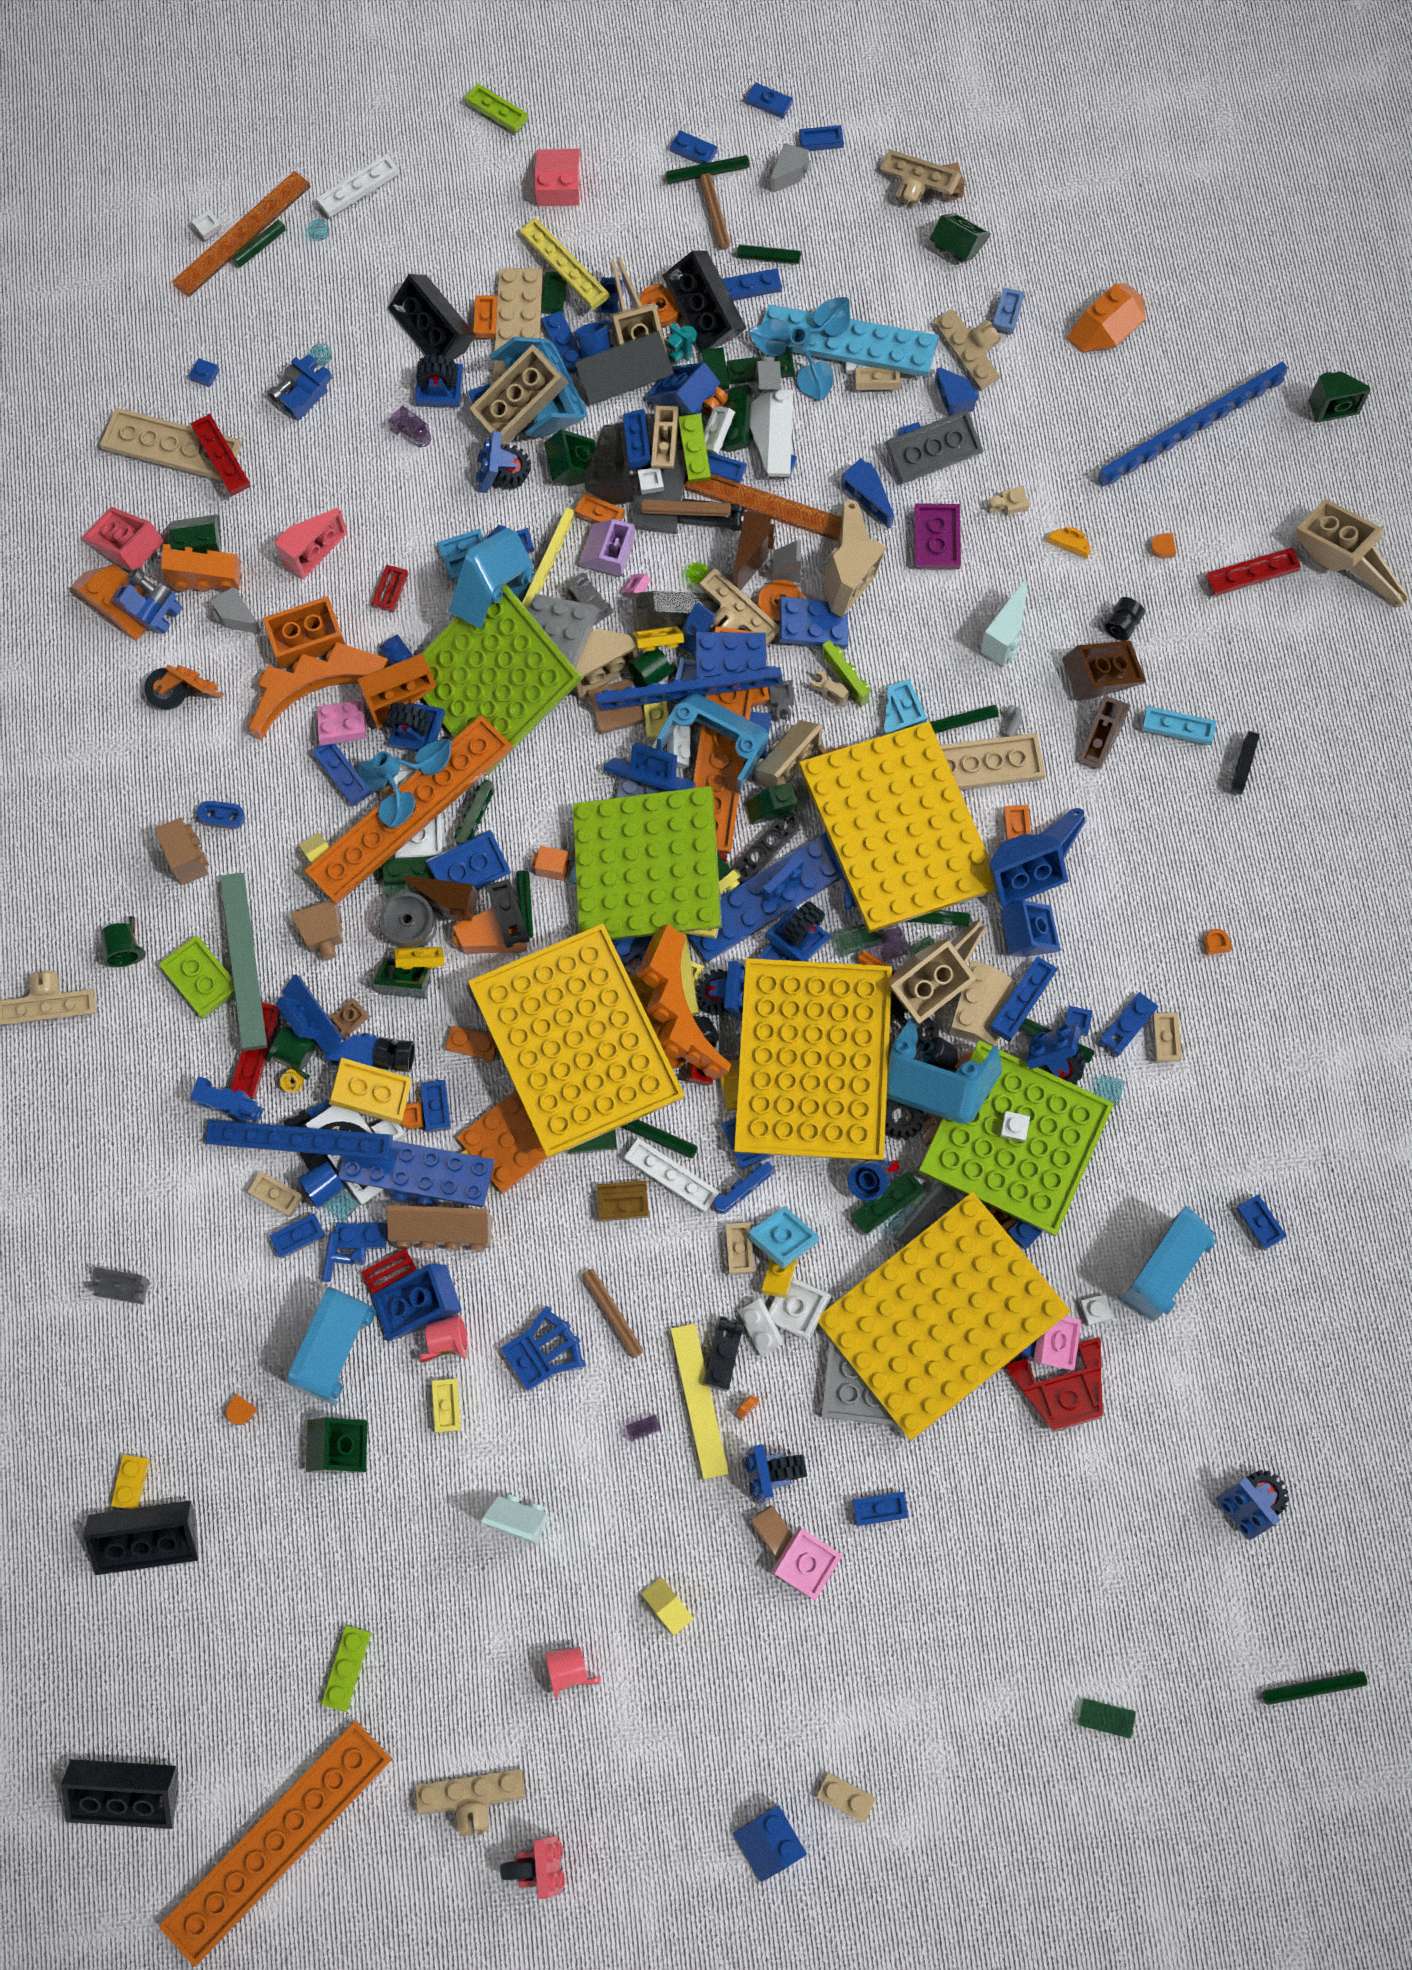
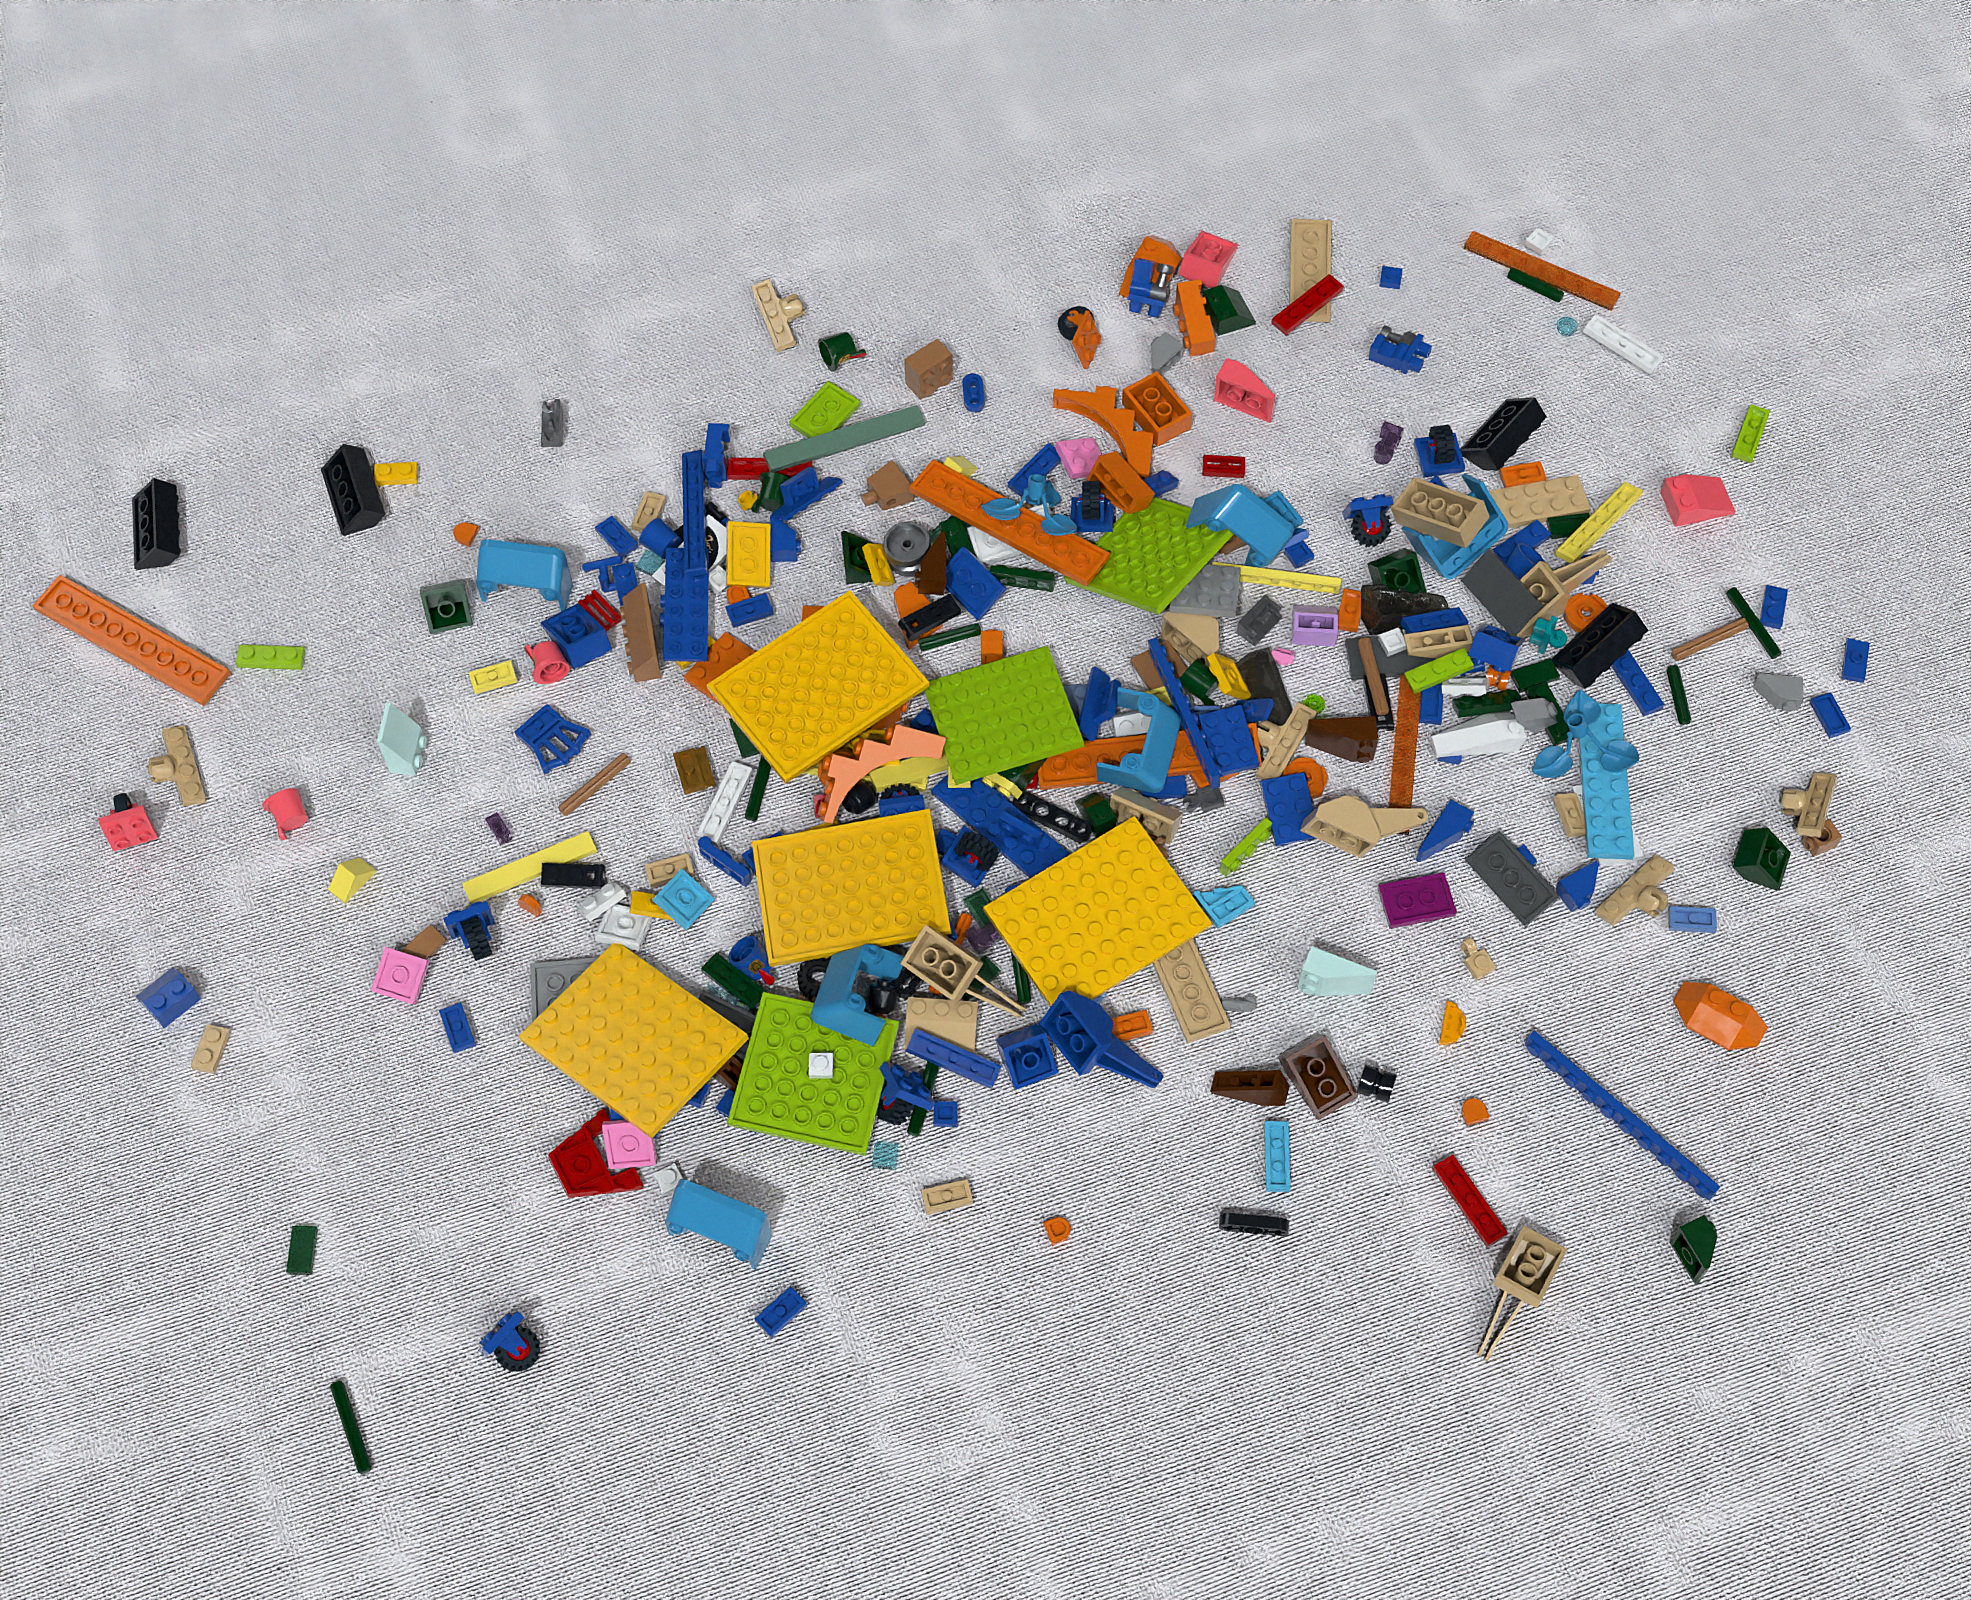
camera: 75 degrees right, 10 degrees down
(321, 353) = (1439, 358): clear light blue plate -> none
(349, 1017) = (809, 527): medium nougat slope -> none
(396, 1055) = (786, 567): black wheel -> none
(786, 562) = (1342, 774): light grey slope -> none
(833, 691) = (1224, 842): tan plate -> none
(965, 719) = (1227, 958): dark green axle -> none
(1129, 1023) = (953, 1162): blue plate -> none

